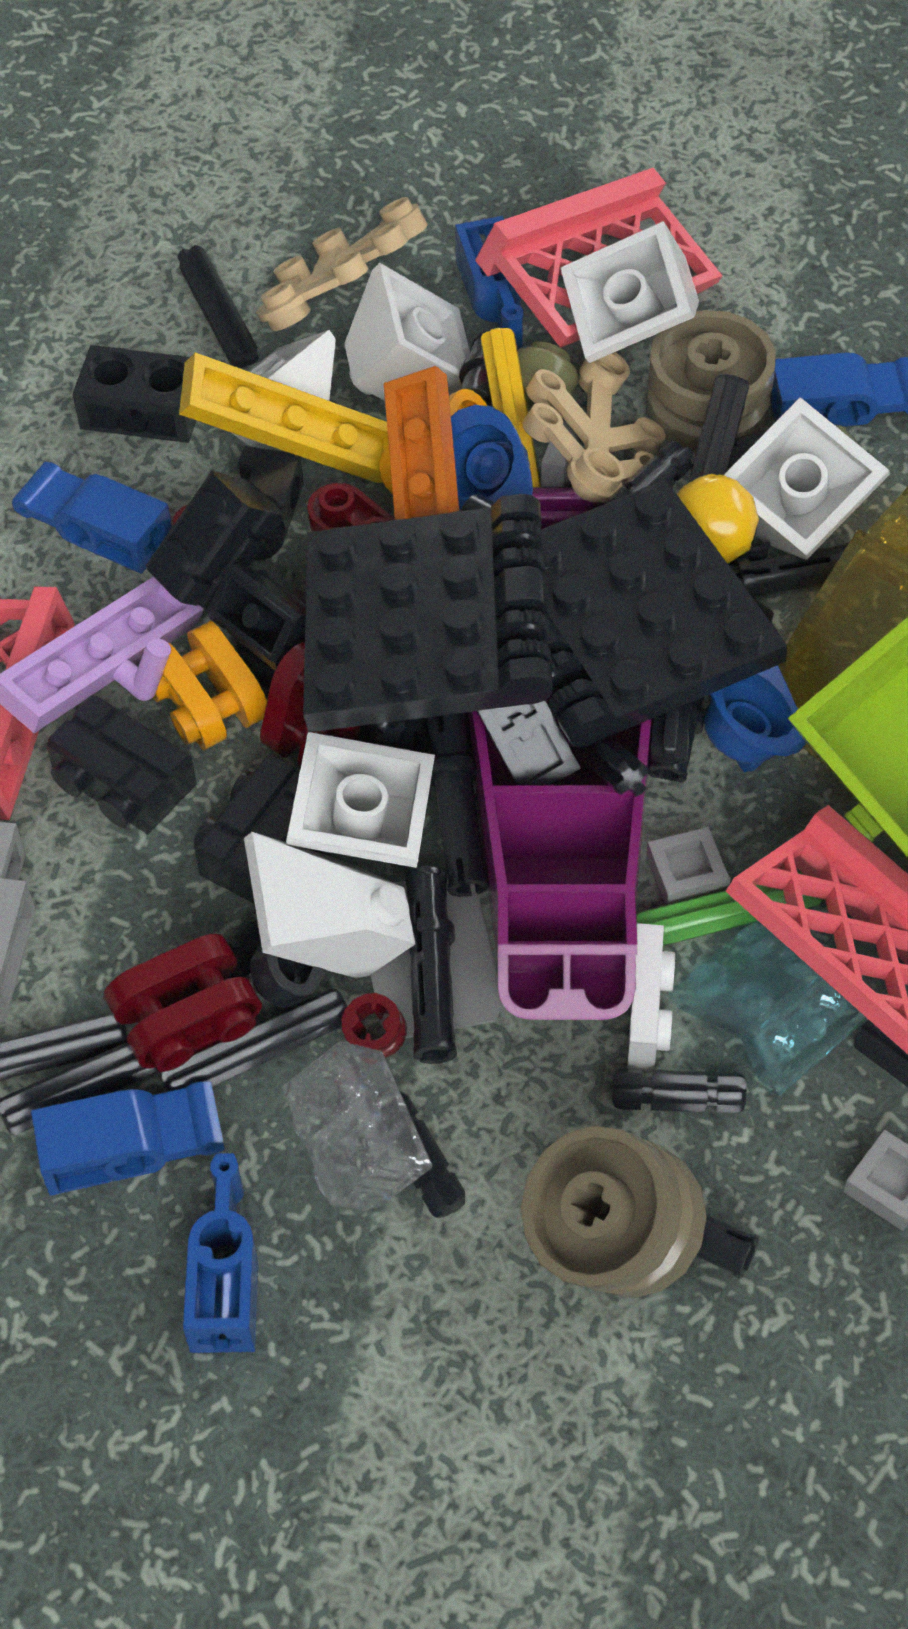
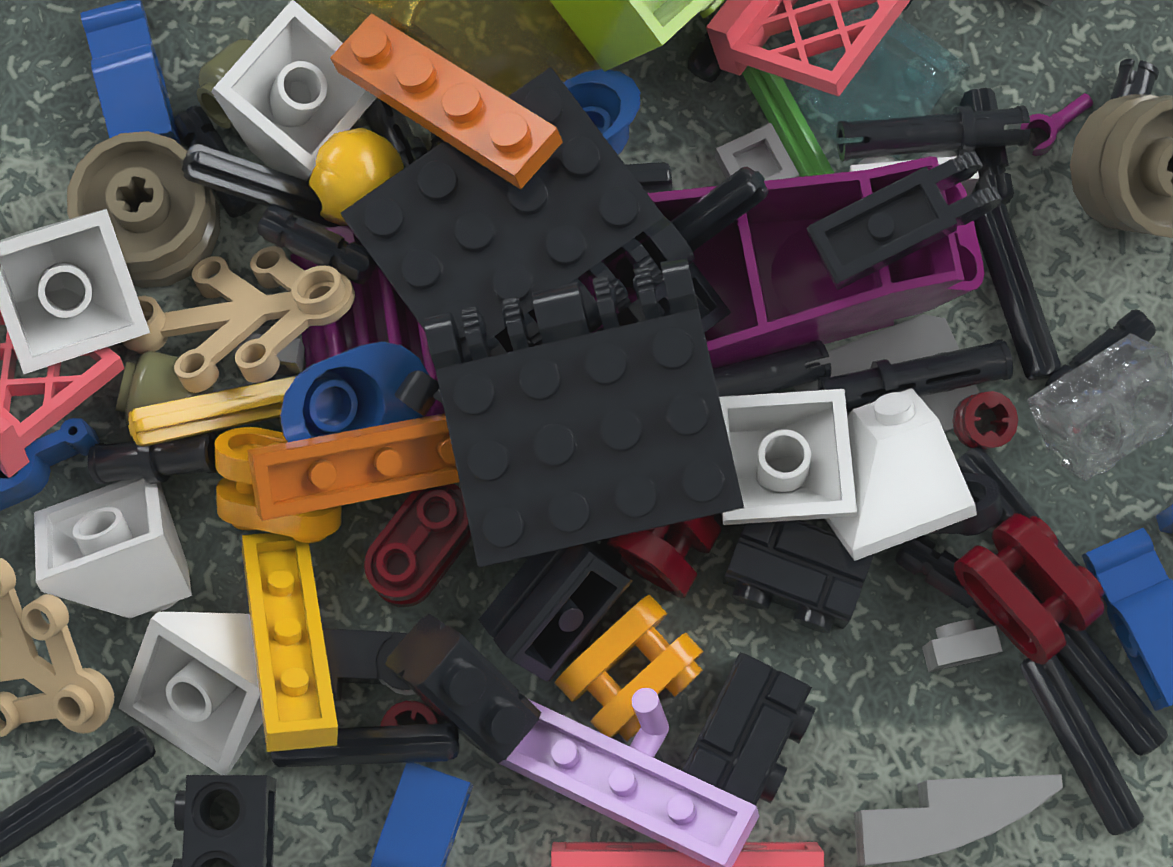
camera: 100 degrees left, 20 degrees up
(146, 937) = (960, 645): none -> light grey plate
(202, 458) = (379, 746): none -> black axle
(511, 1087) = (1017, 294): none -> black axle
(566, 891) = (898, 220): none -> black hinge
(689, 1035) = (955, 131): none -> black pin
(694, 1156) = (1056, 122): none -> magenta hand
(757, 557) = (447, 100): none -> orange plate

